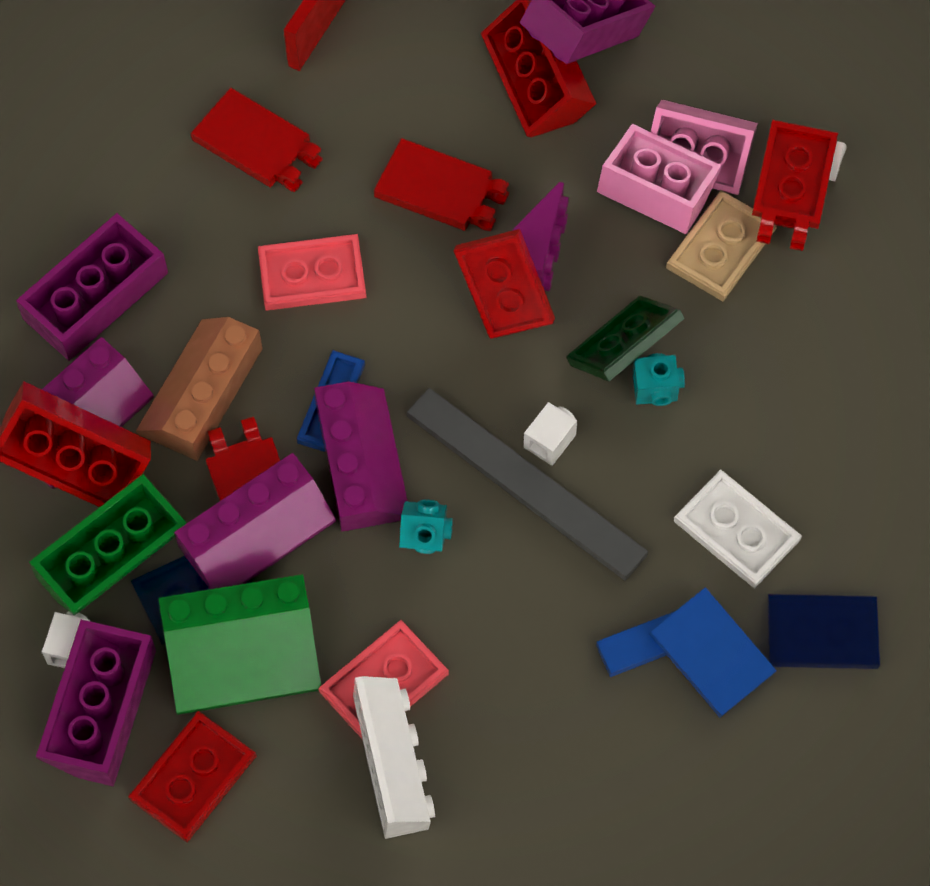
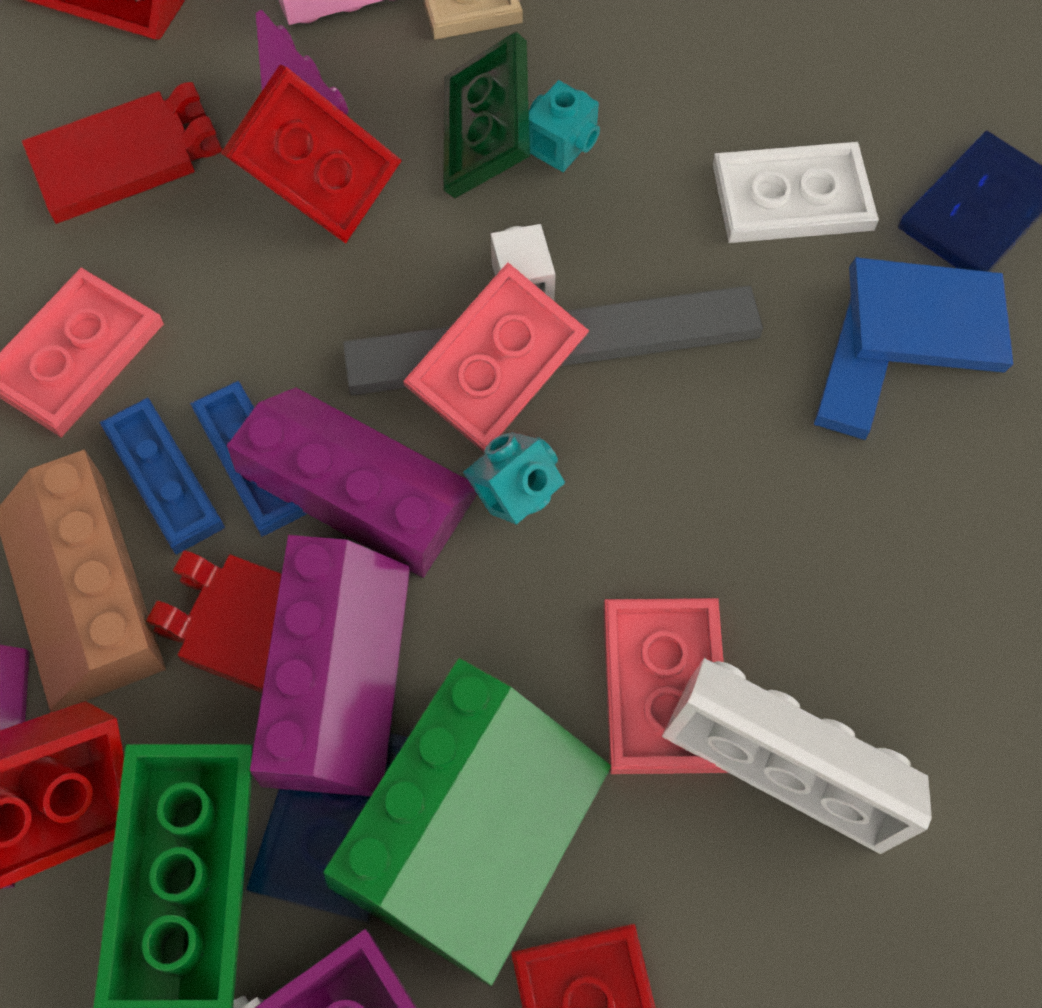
camera: 50 degrees left, 0 degrees up
(286, 372) = (162, 476): none -> blue tile
(482, 464) = (496, 357): none -> coral tile

